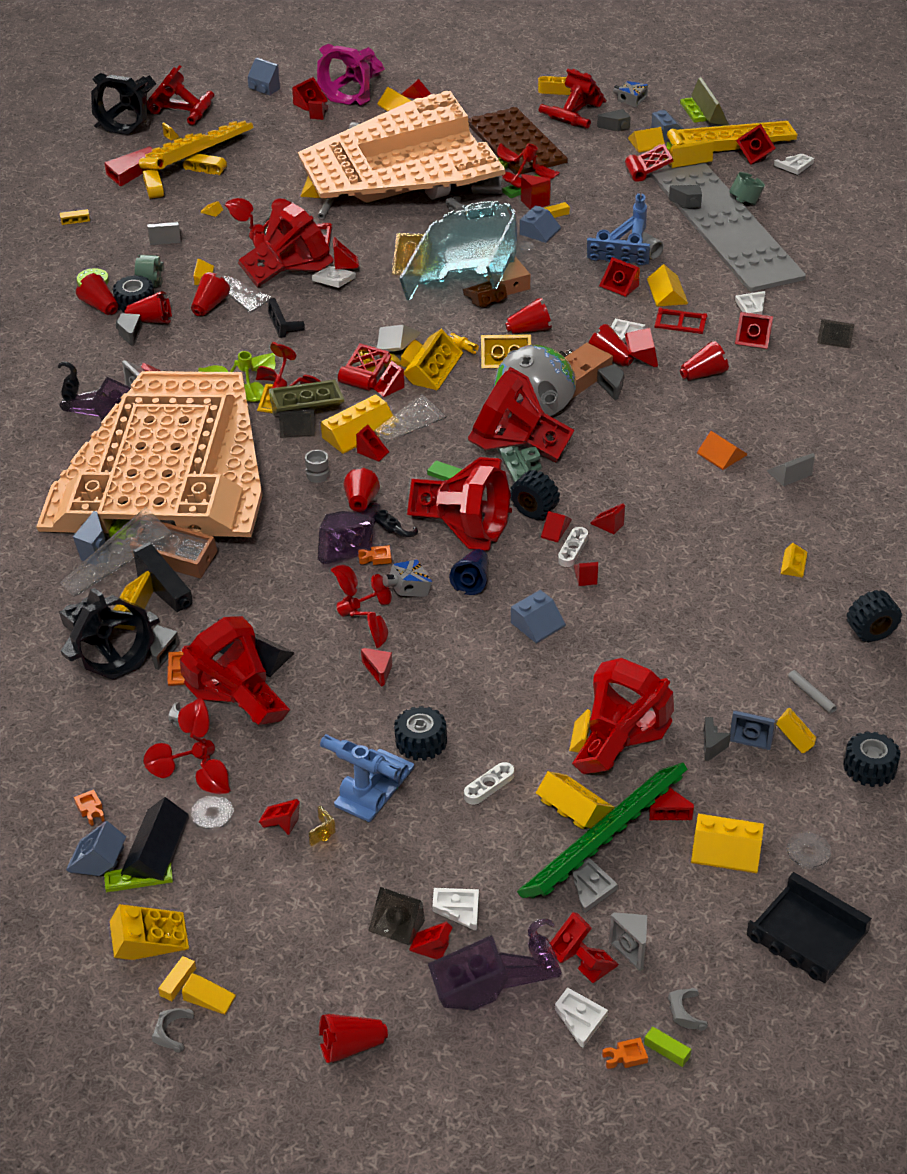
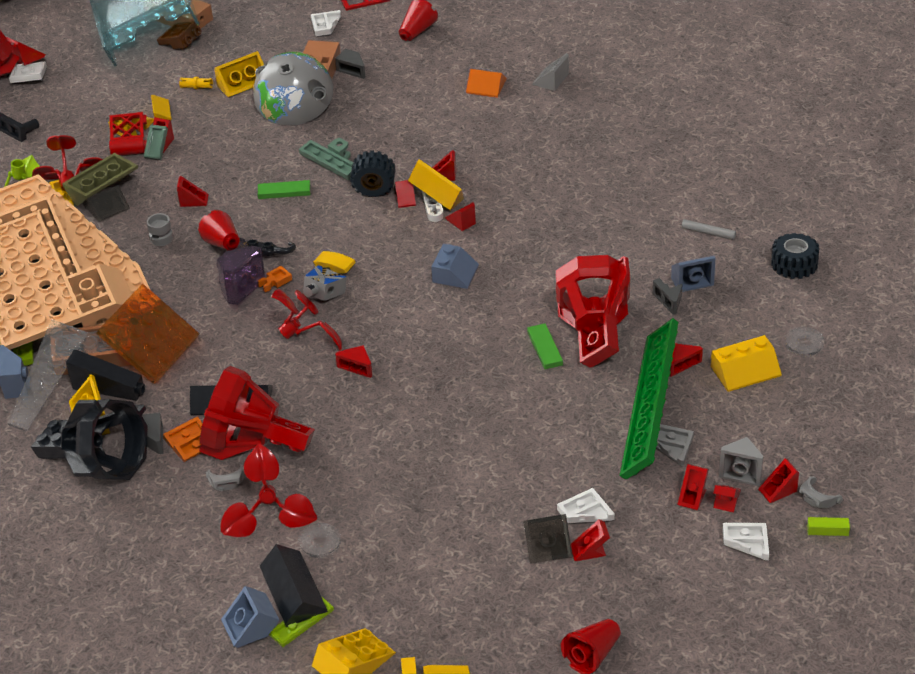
camera: 30 degrees left, 0 degrees up
(89, 806) = (207, 586): orange plate -> none
(223, 556) = (147, 333): none -> clear orange plate
(284, 814) = (385, 509): red slope -> none
(323, 831) = (429, 504): clear yellow bracket -> none
(342, 428) = (159, 185): yellow slope -> none
(375, 777) = (434, 446): medium blue plate -> none
(380, 383) = (155, 142): none -> sand green tile
(396, 337) = (135, 99): slope -> none
(404, 248) = (82, 28): clear yellow slope -> none
(409, 420) = (207, 159): clear wing -> none
(420, 733) = (441, 395): black wheel -> none
(433, 361) = (184, 106): yellow slope -> none
(439, 562) = (337, 262): none -> yellow slope
(461, 502) = (312, 205): red plate -> none
(470, 572) = (372, 257): dark blue cone -> none
(480, 971) = (656, 541): clear purple slope -> none
(492, 775) = (526, 402): white beam -> none
(527, 423) = (303, 113): red plate -> none
(529, 319) = (240, 40): red cone -> none
(556, 732) = (545, 346): none -> bright green tile
(573, 799) = (605, 389): yellow slope -> none
(580, 731) = (565, 336): yellow slope -> none
(581, 531) = (436, 185): none -> yellow slope
(611, 343) = (329, 33): red cone -> none
(628, 1052) = (805, 544): orange plate -> none
(641, 346) = (356, 25): slope -> none
(656, 978) = (781, 482): none -> red slope
(794, 561) = (611, 141): yellow slope -> none
(796, 730) = (726, 261): yellow slope -> none
(810, 928) = (853, 393): black panel -> none
(874, 616) = (713, 153): black wheel -> none

